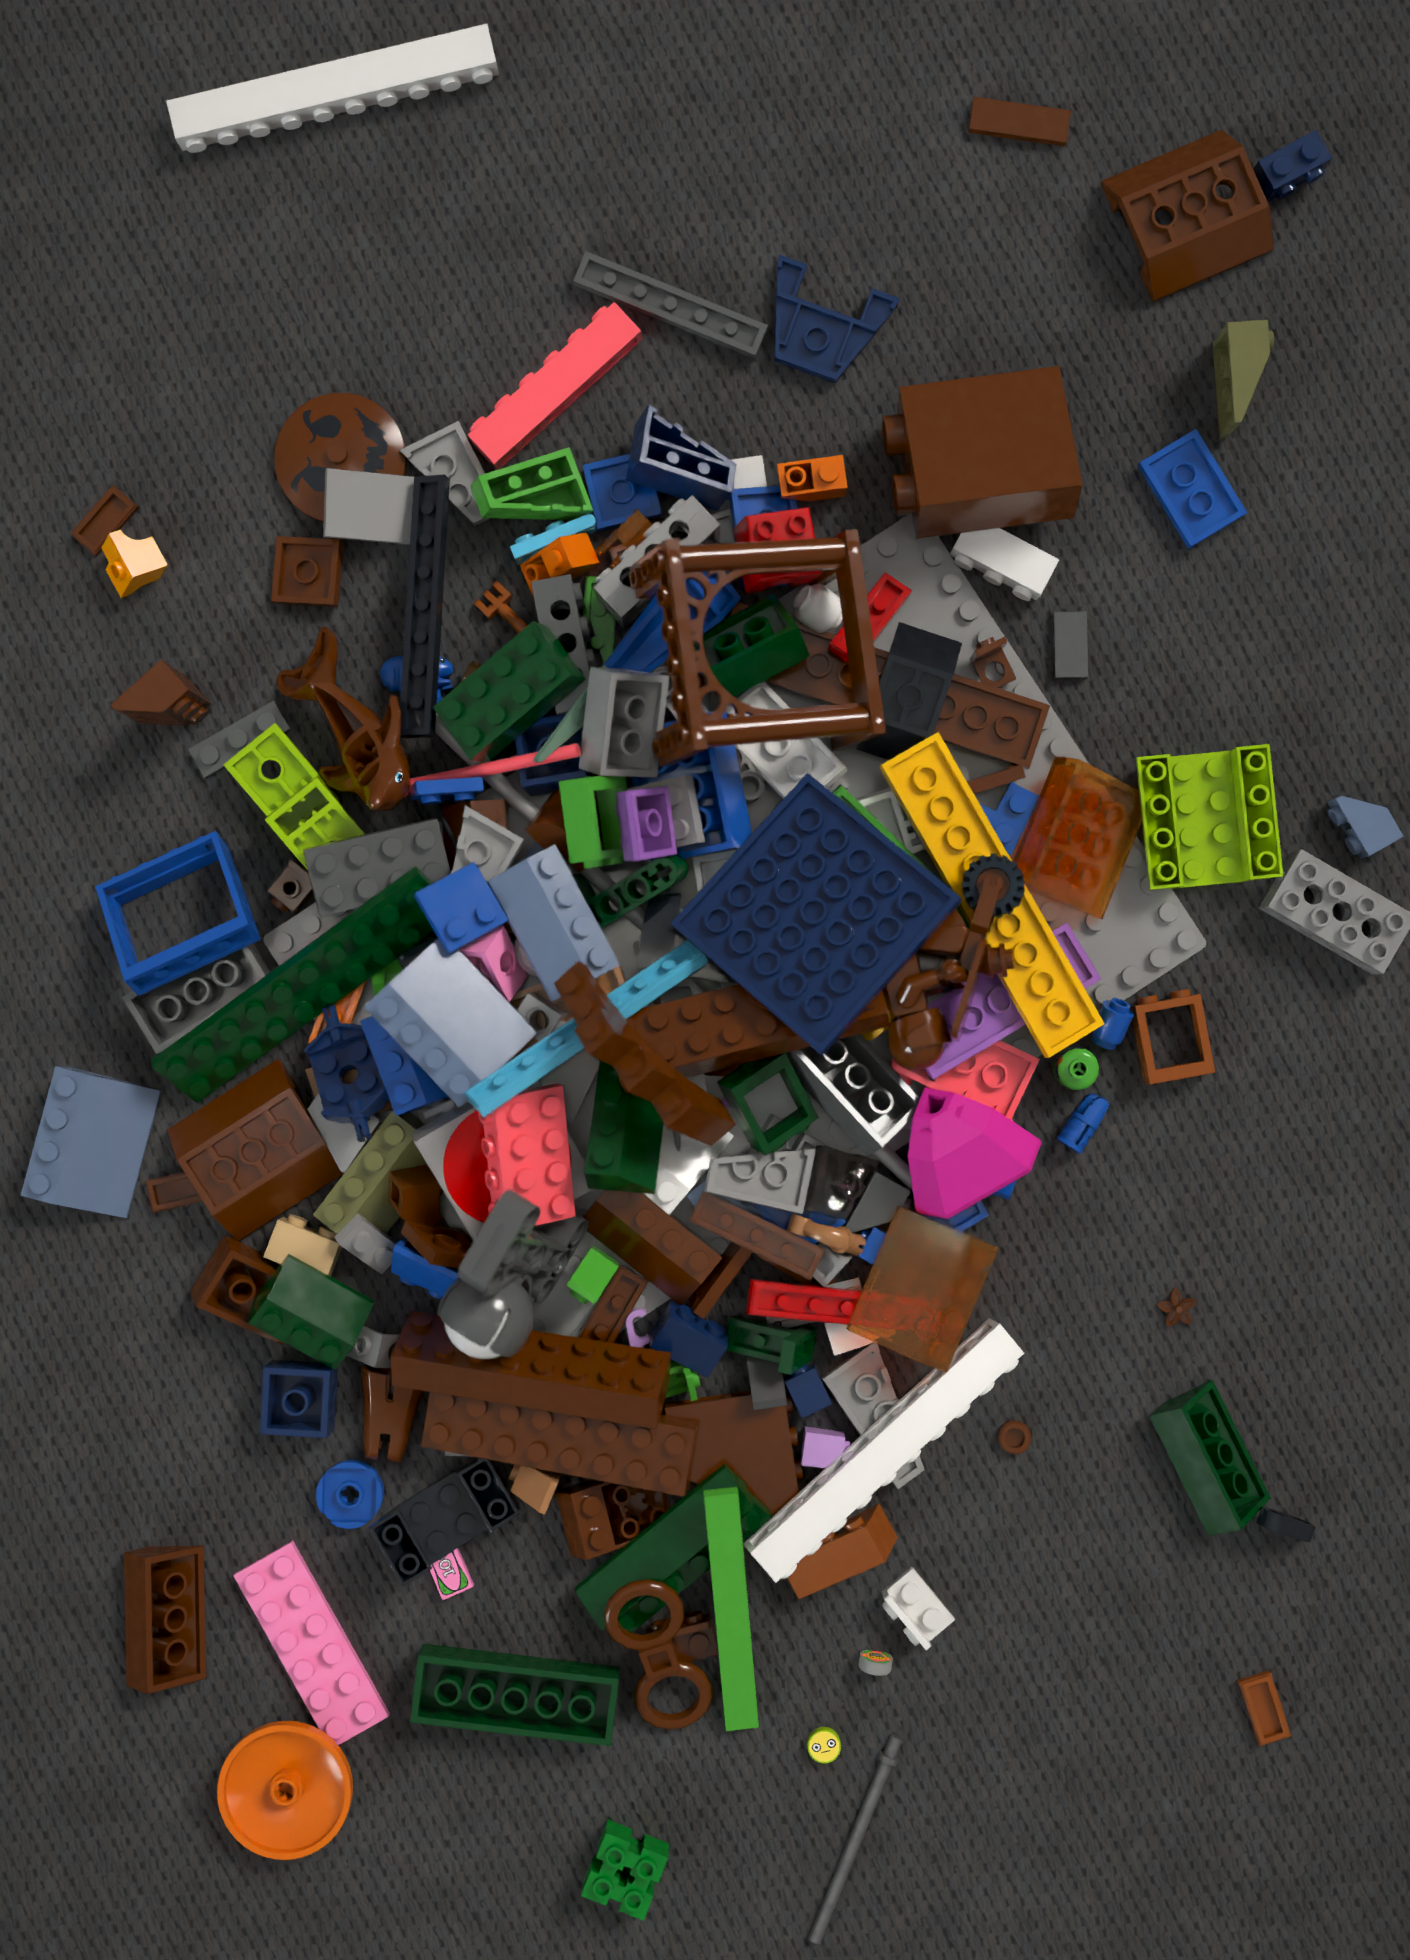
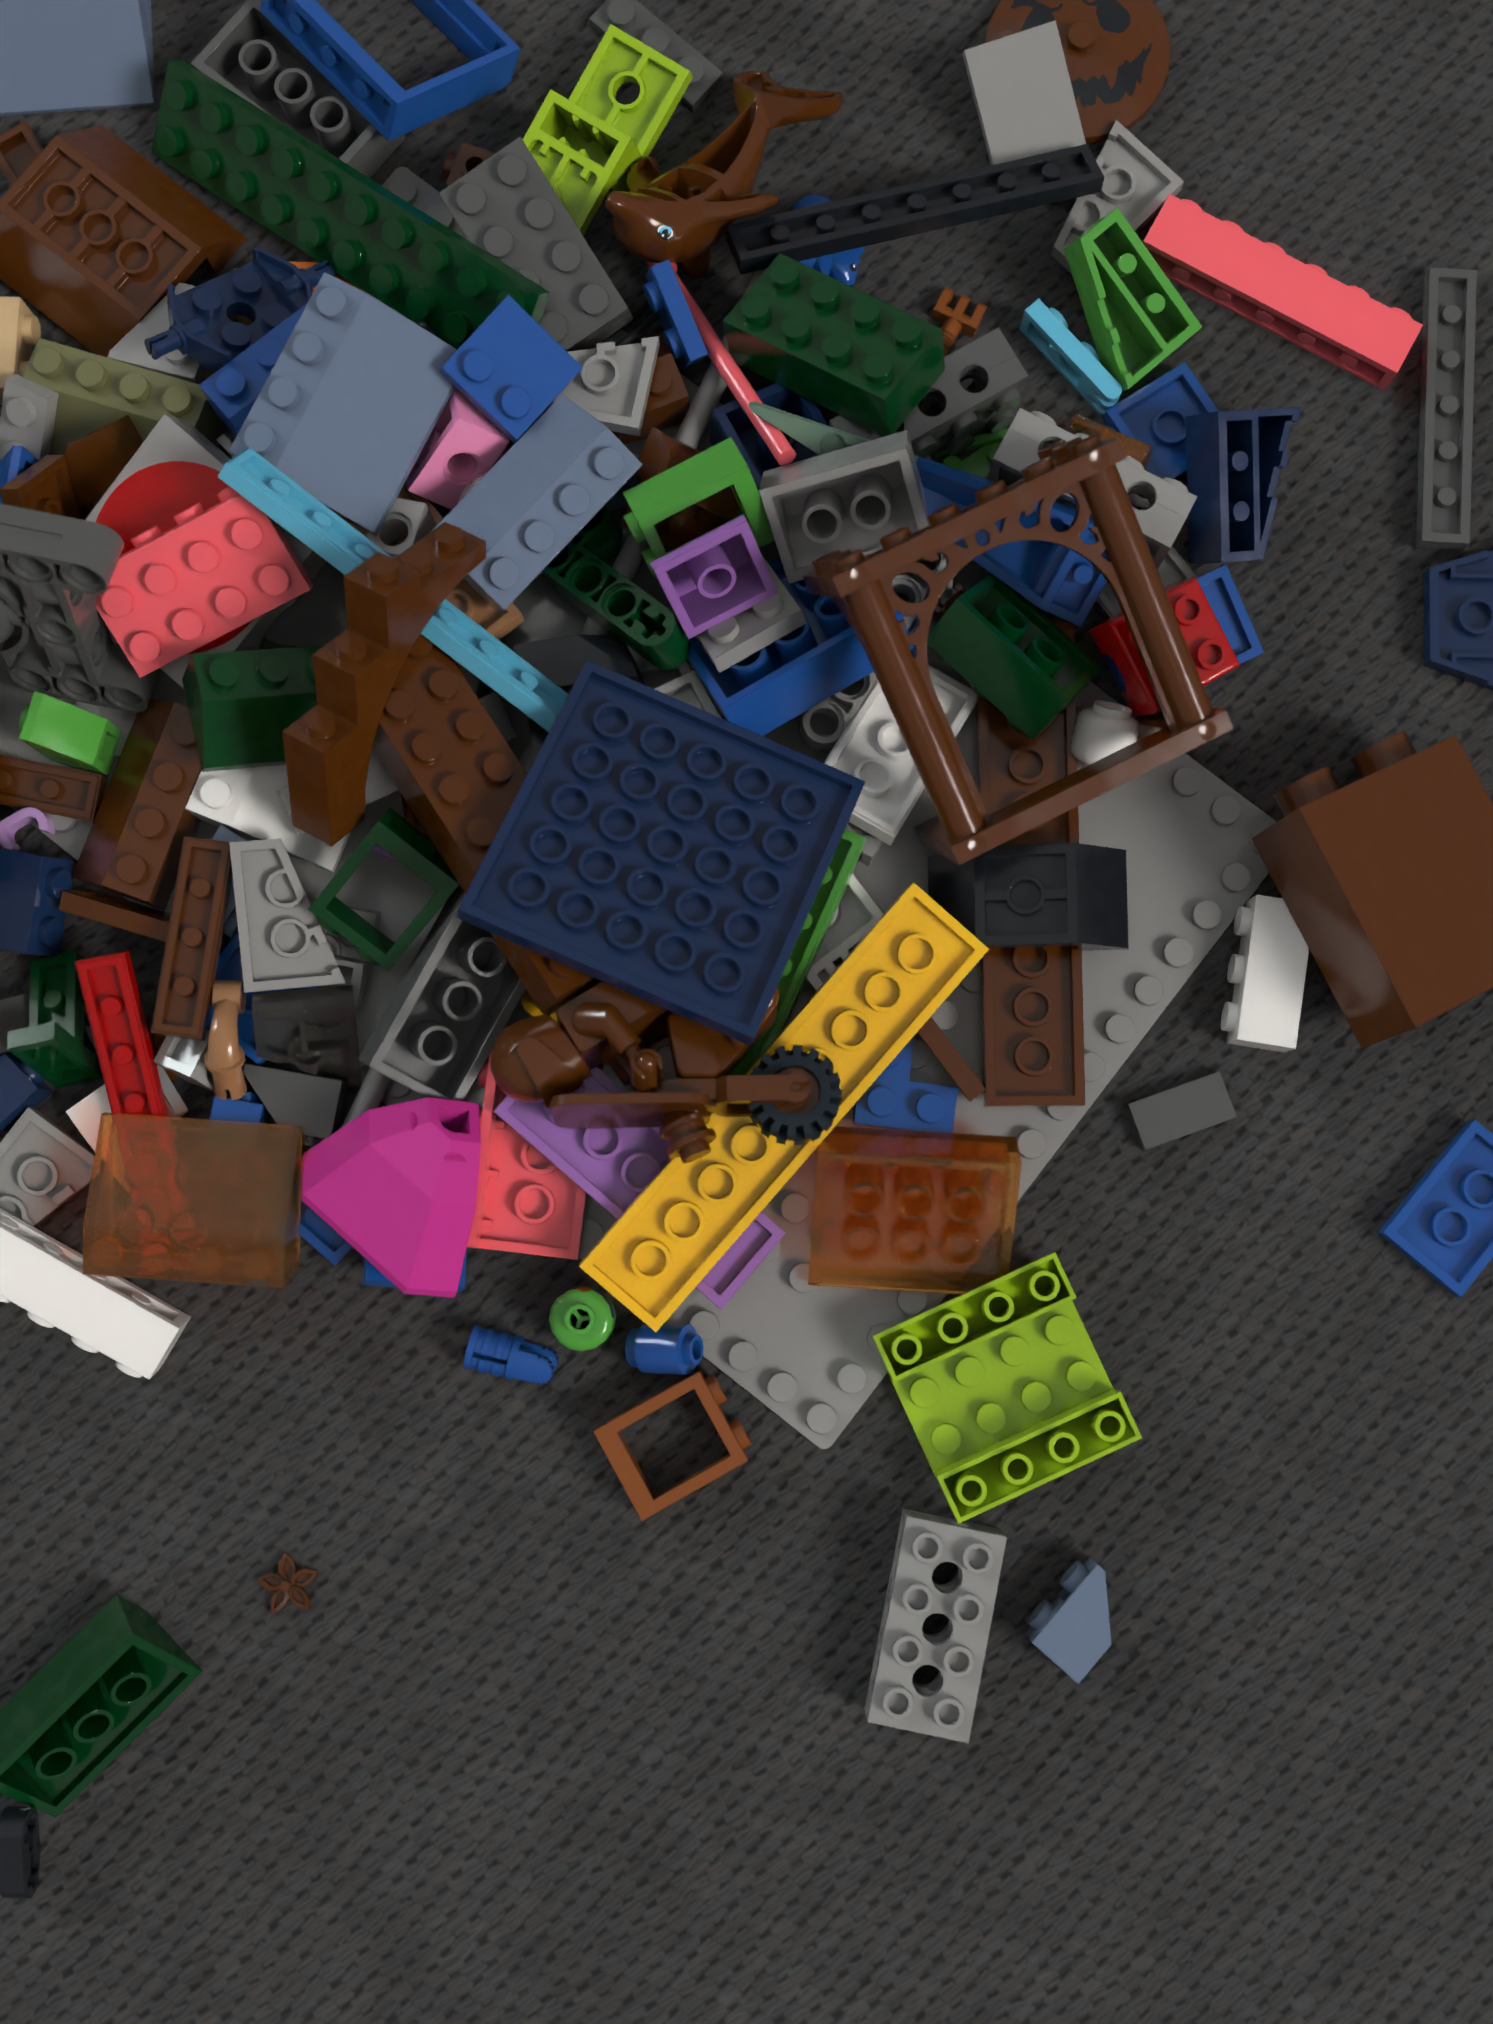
camera: 70 degrees right, 5 degrees down
(307, 571) = (910, 59): reddish brown plate -> none
(561, 557) = (1055, 377): orange slope -> none
(749, 472) = (1259, 588): white tile -> none
(813, 479) = (1281, 672): orange slope -> none
(883, 603) = (1128, 819): red tile -> none
(988, 652) = (1131, 997): reddish brown bracket -> none
(1014, 1437) = (31, 1410): reddish brown tile -> none

